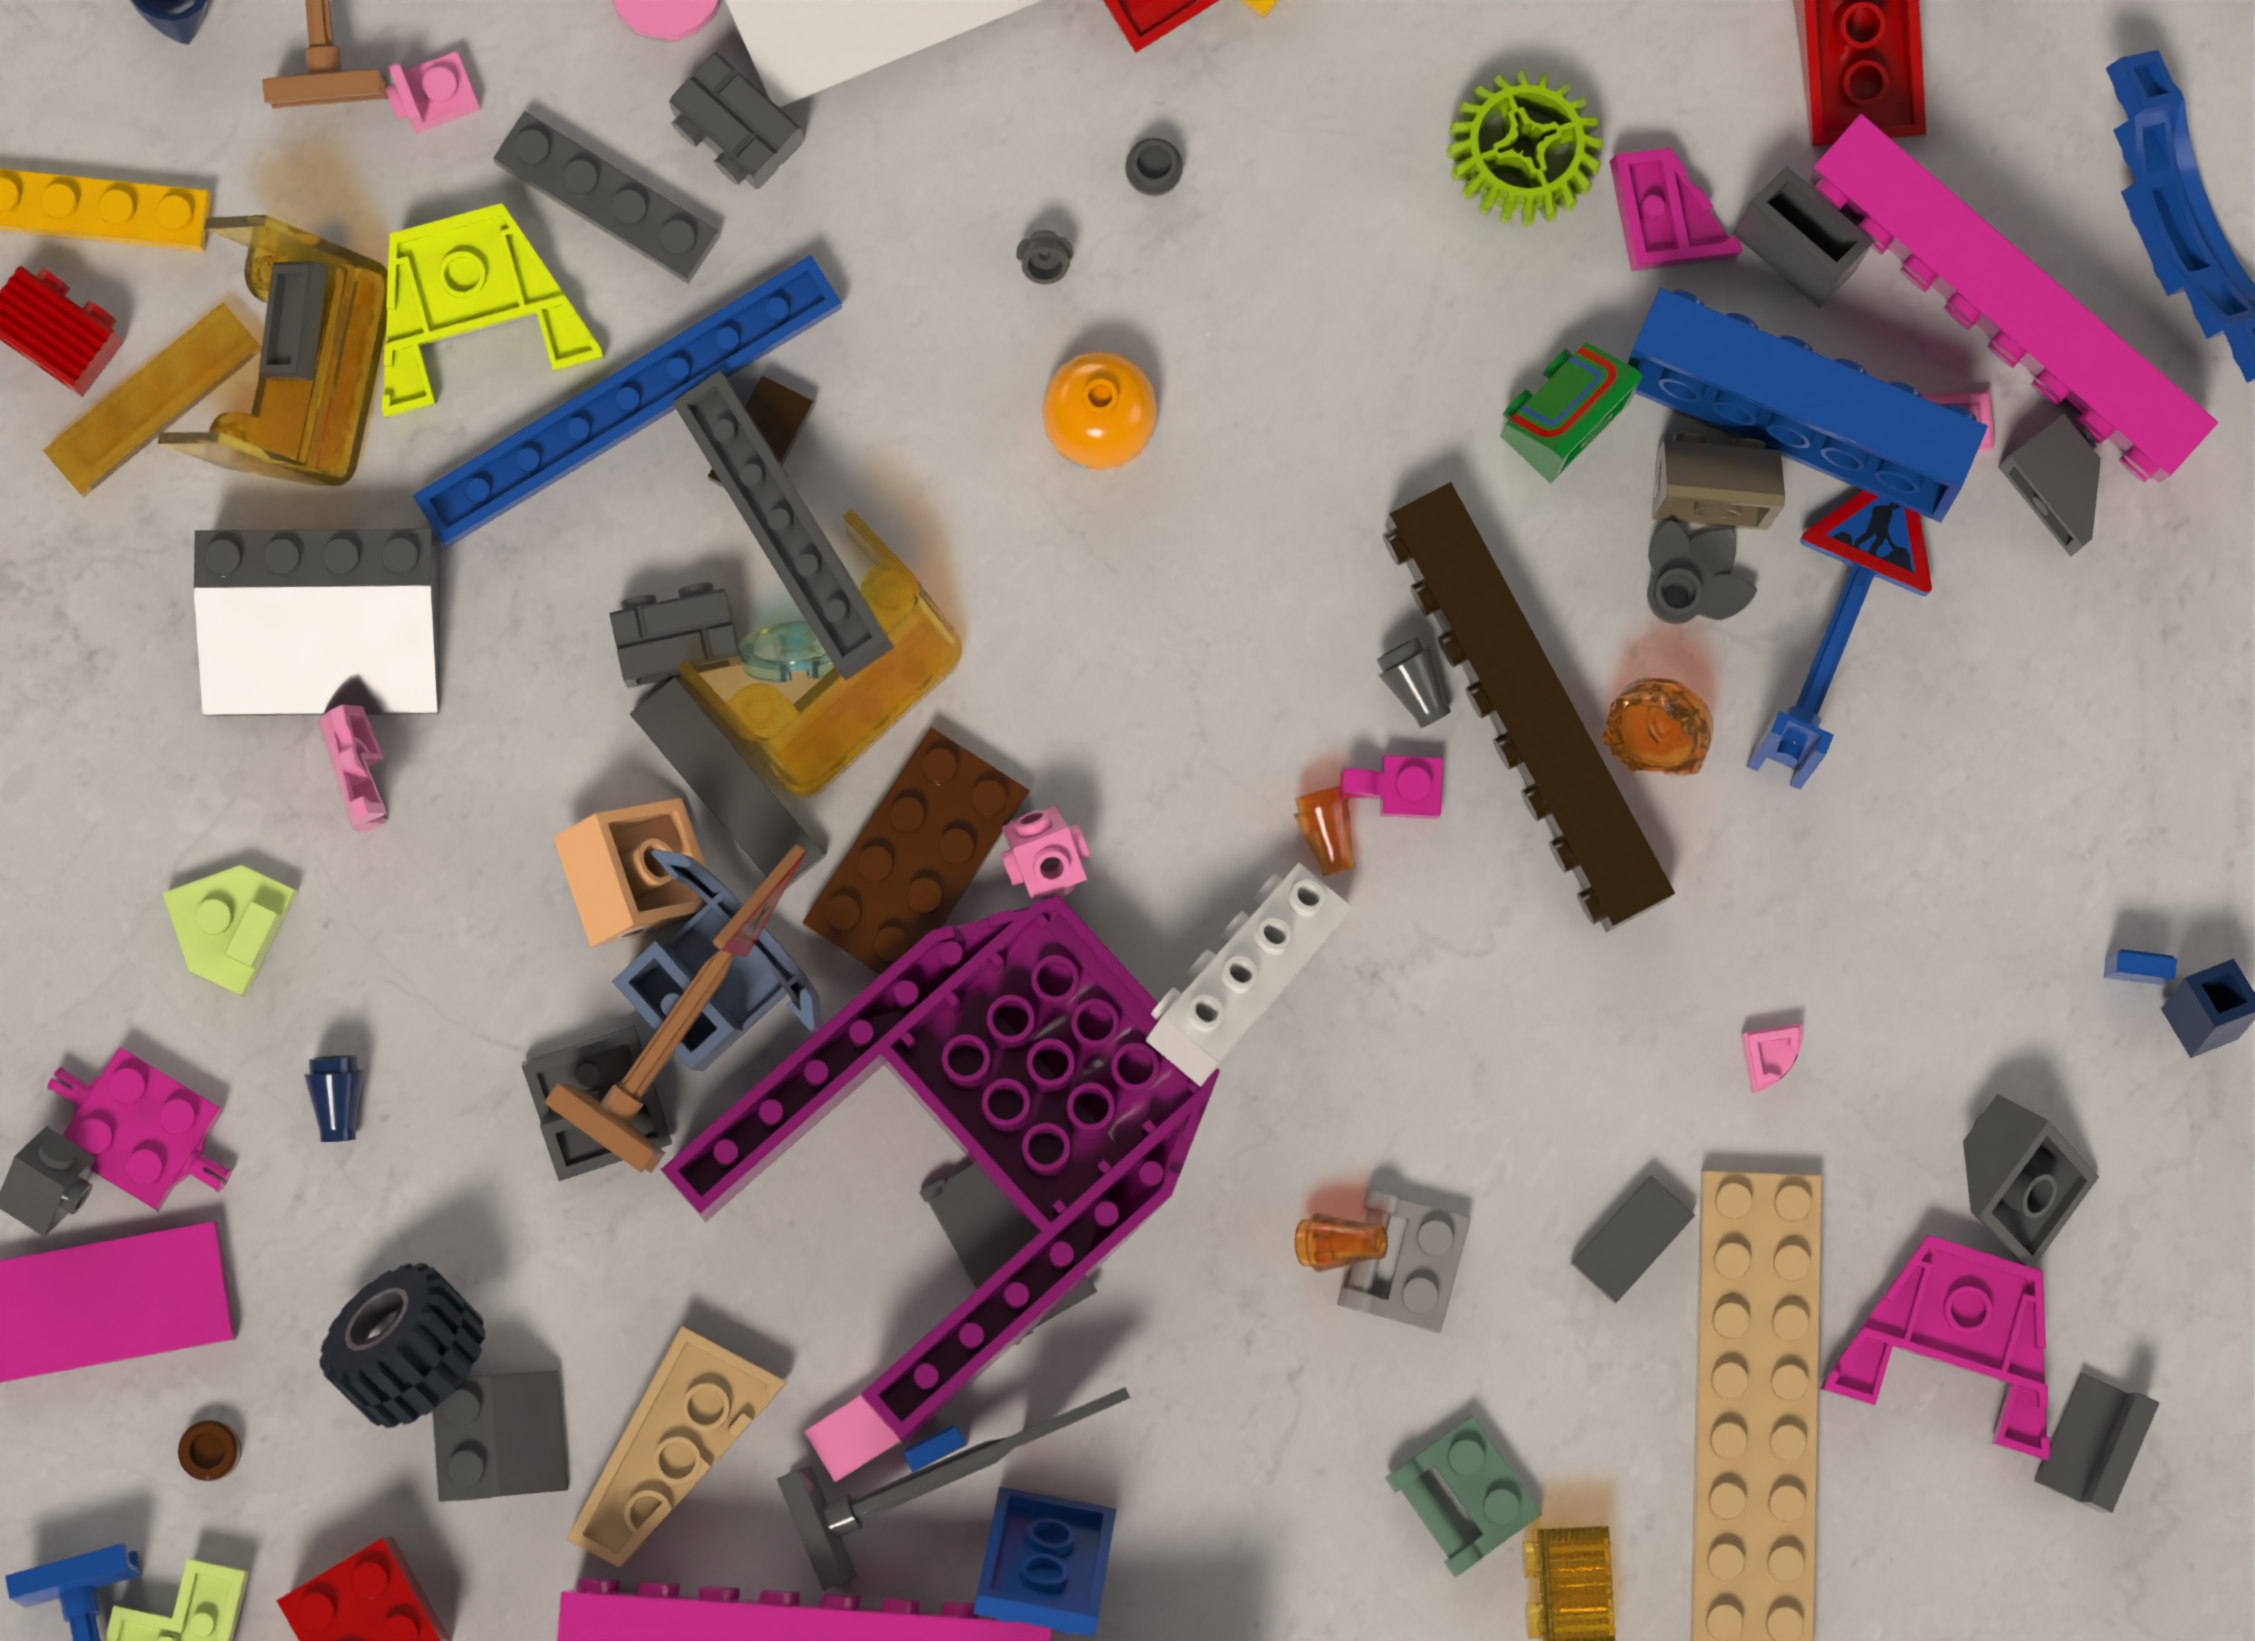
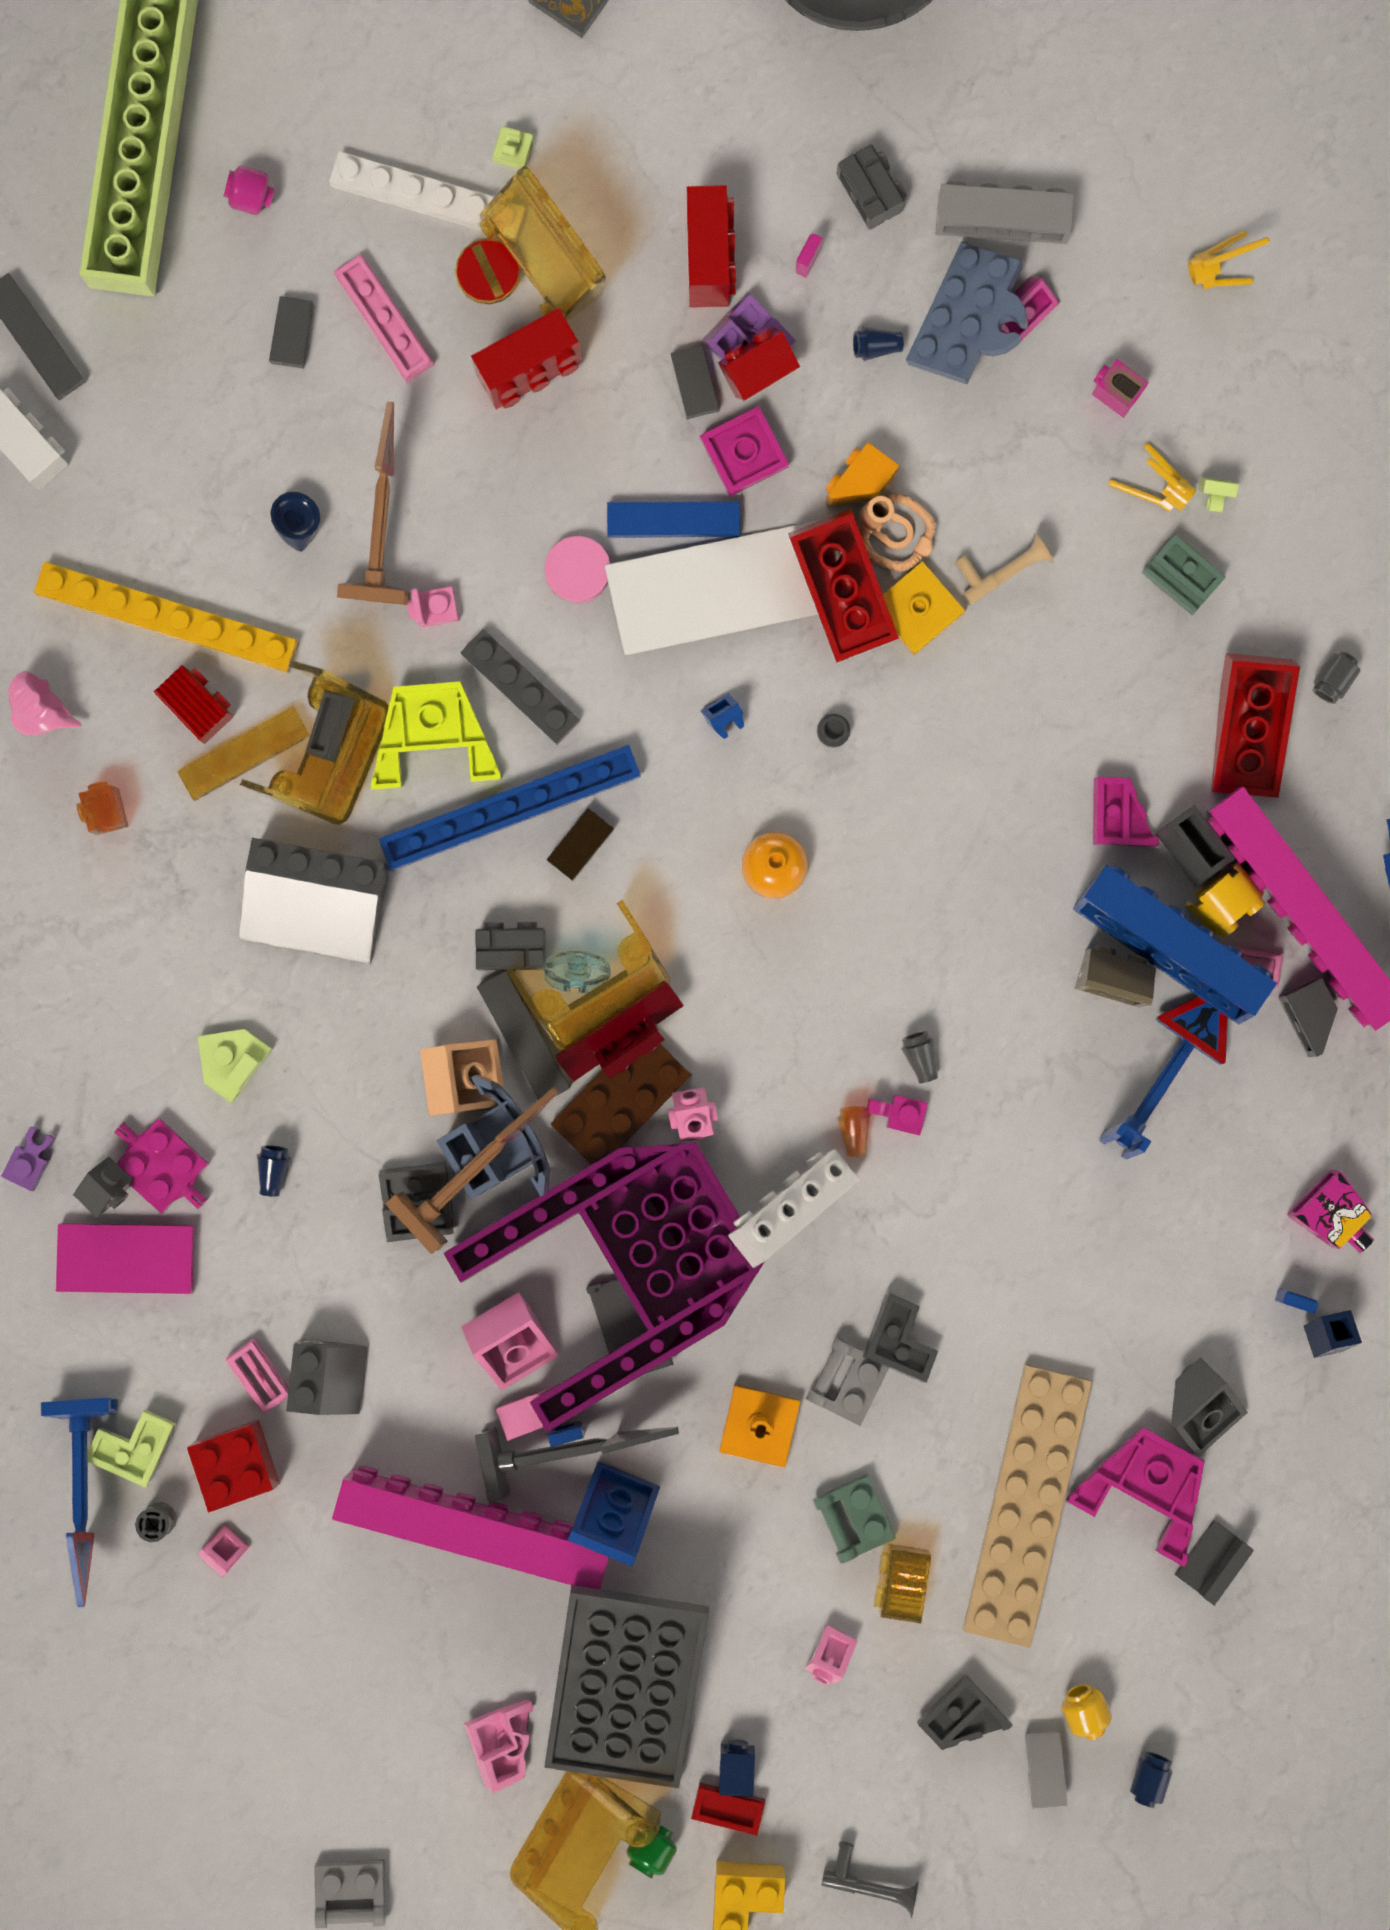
camera: 20 degrees right, 5 degrees up
(209, 1450) = (166, 1352): reddish brown tile -> none
(351, 751) = (317, 974): bright pink slope -> none
(402, 1345) = (282, 1321): black wheel -> none
(415, 1494) = (270, 1369): none -> bright pink tile
(677, 1434) = (428, 1393): tan wing -> none
(735, 122) = (600, 658): dark grey brick -> none
(783, 525) = (582, 900): dark grey plate -> none
(805, 1308) = (509, 1341): none -> bright pink slope
(896, 743) = (622, 1036): none -> dark red bracket
(959, 172) = (722, 713): none -> blue tile
(1044, 267) = (761, 771): dark grey plate -> none
(1267, 1368) = (759, 1425): none -> light orange tile
(1335, 1242) = (812, 1365): clear orange cone -> none
(1464, 1180) = (890, 1341): none -> dark grey plate
(1502, 158) = (1044, 748): lime gear -> none
(1527, 707) = (982, 1085): dark brown brick -> none
(1569, 409) = (1041, 918): green slope -> none
(1632, 1239) = (978, 1395): dark grey tile -> none
(1659, 727) = (1053, 1111): clear orange hair -> none
(1700, 570) = (1096, 1024): dark grey plate -> none
(1771, 1054) = (1078, 1306): bright pink tile -> none
(1875, 314) = (1226, 901): none -> yellow brick
(2171, 807) = (1334, 1213): none -> torso

